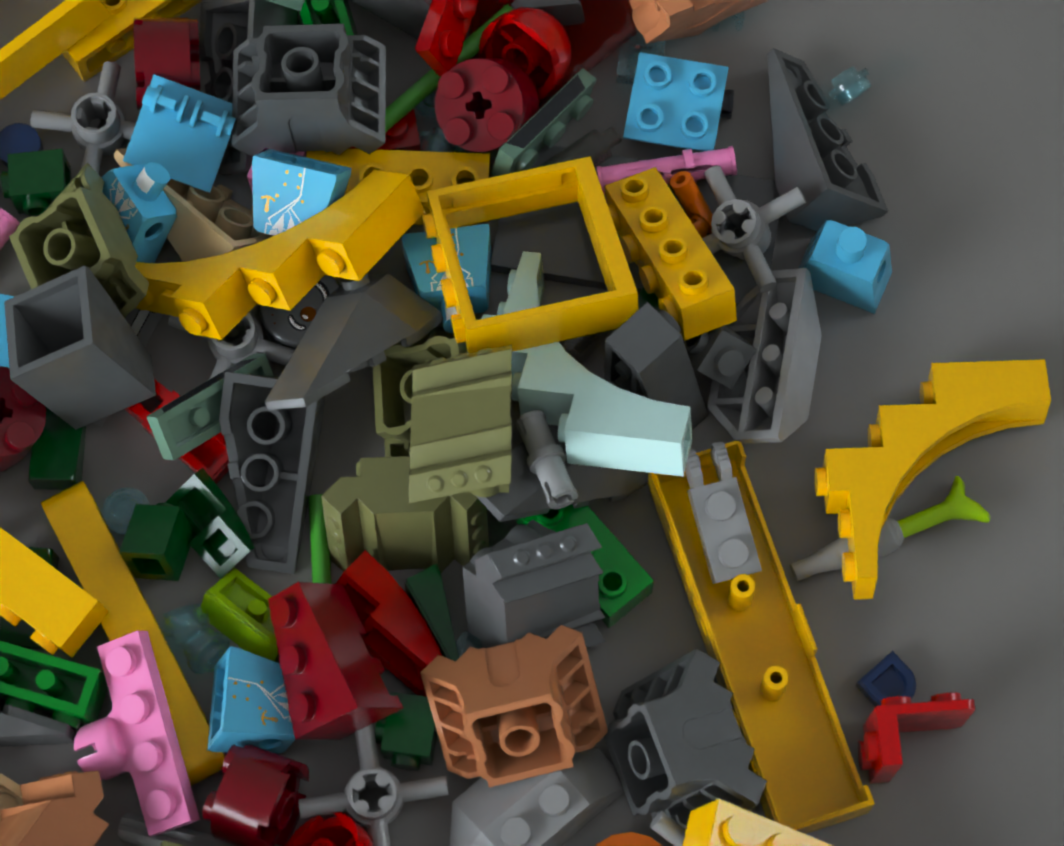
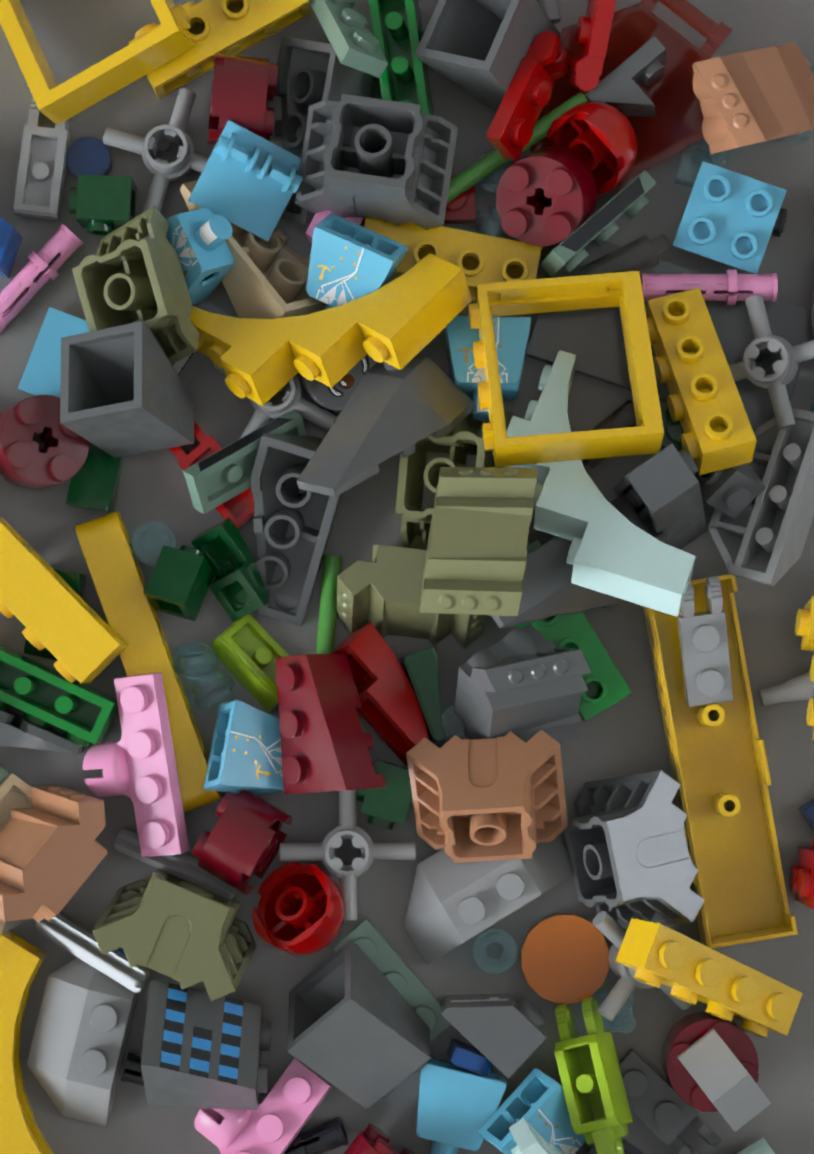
camera: 10 degrees right, 15 degrees up
(546, 459) = (552, 576): light grey pin -> none
(692, 202) = (729, 326): orange arm -> none

